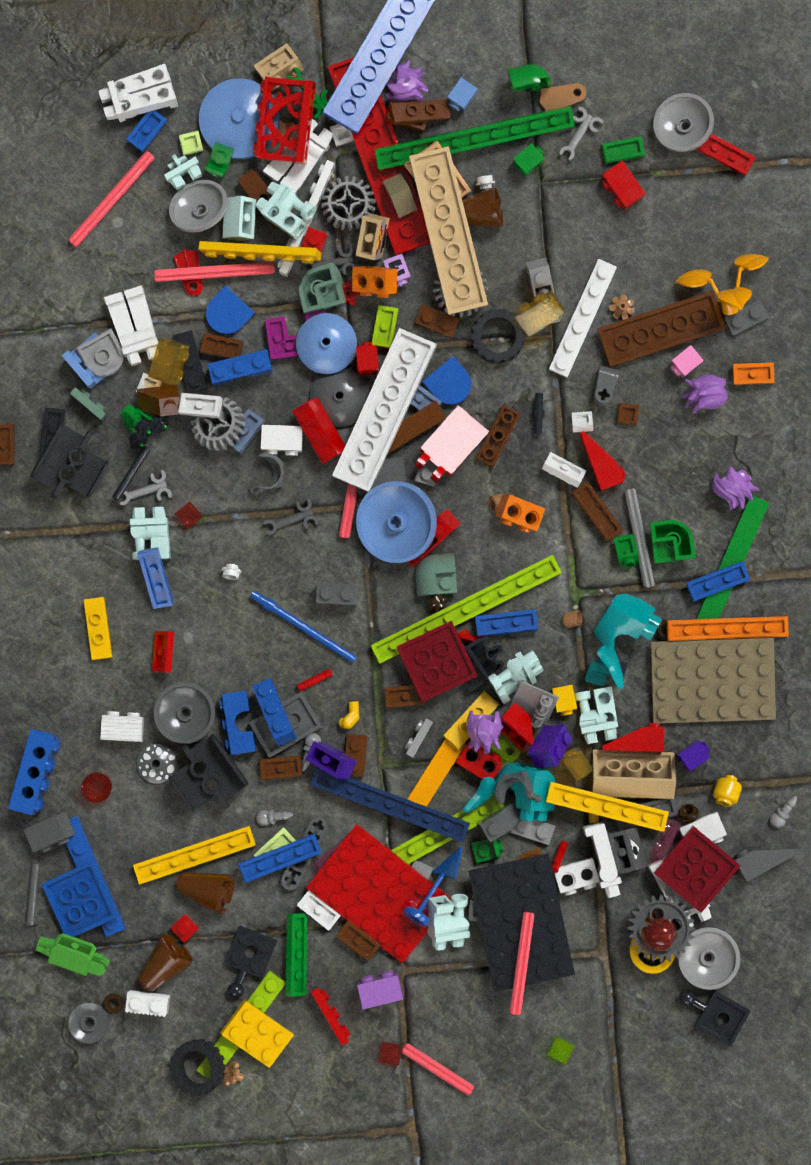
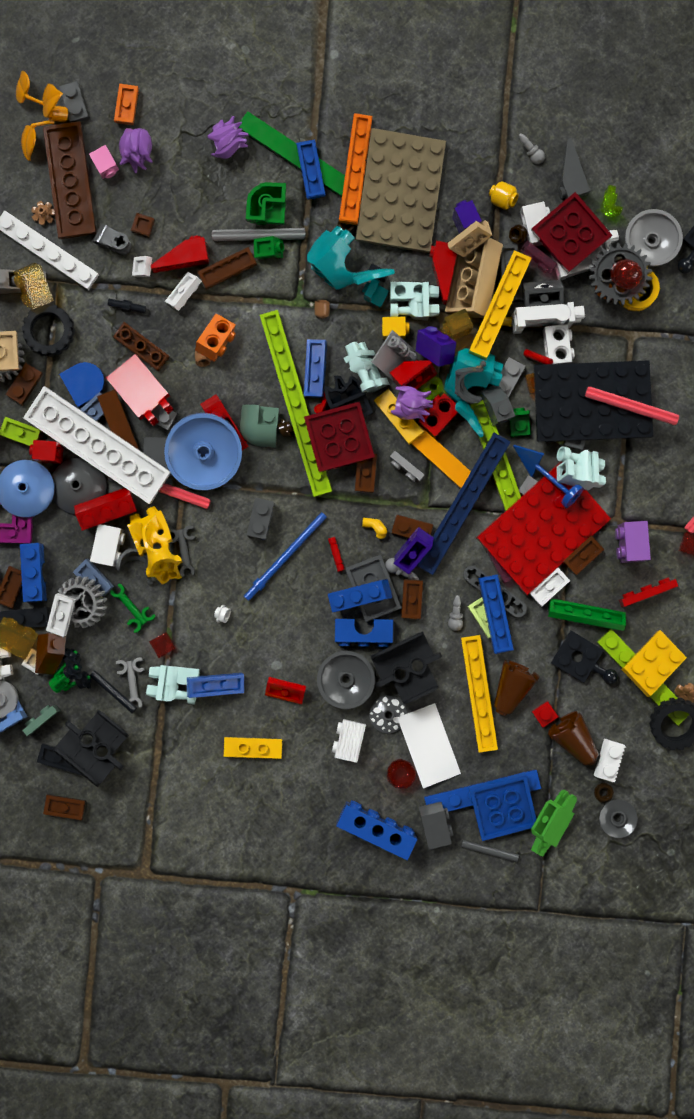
camera: 85 degrees left, 0 degrees up
(131, 811) = (429, 745): none -> white sticker
(212, 487) = (141, 618): none -> green bar
(273, 498) = (160, 561): none -> yellow hips
(670, 763) = (470, 238): none -> tan bracket
(744, 905) = (610, 198): none -> clear neon green bracket

